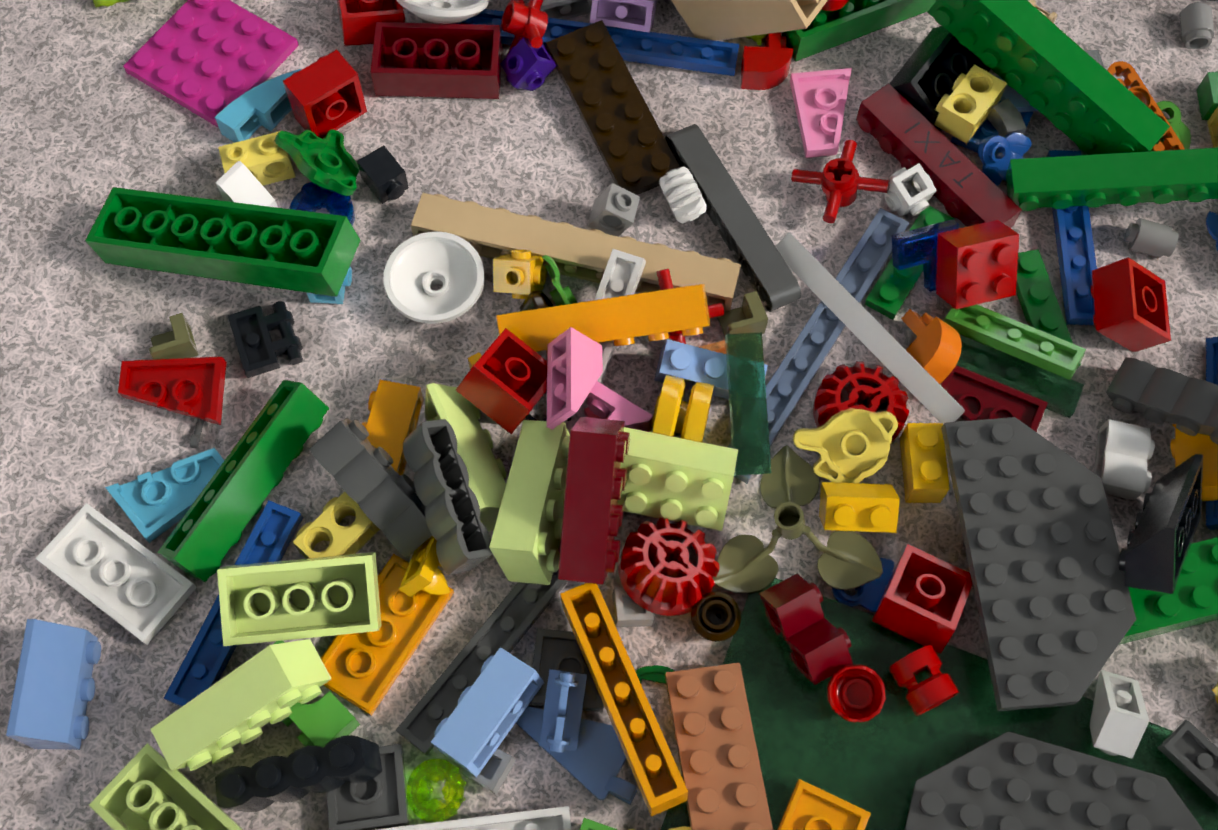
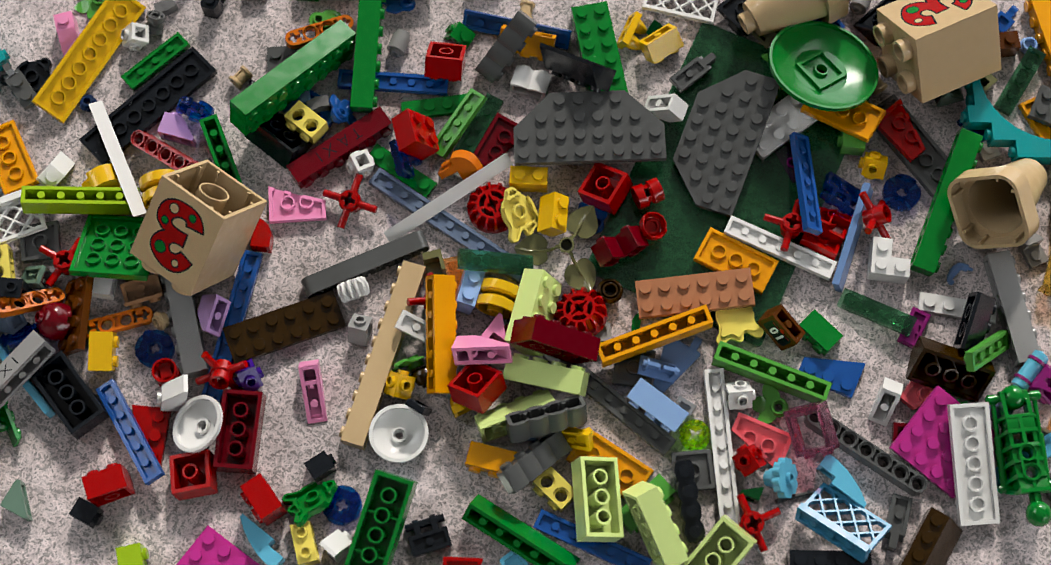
camera: 85 degrees left, 5 degrees up
(478, 302) = (418, 406): none -> black tile
(511, 154) = (313, 391): none -> bright pink slope
(1191, 335) = (459, 34): none -> green bracket

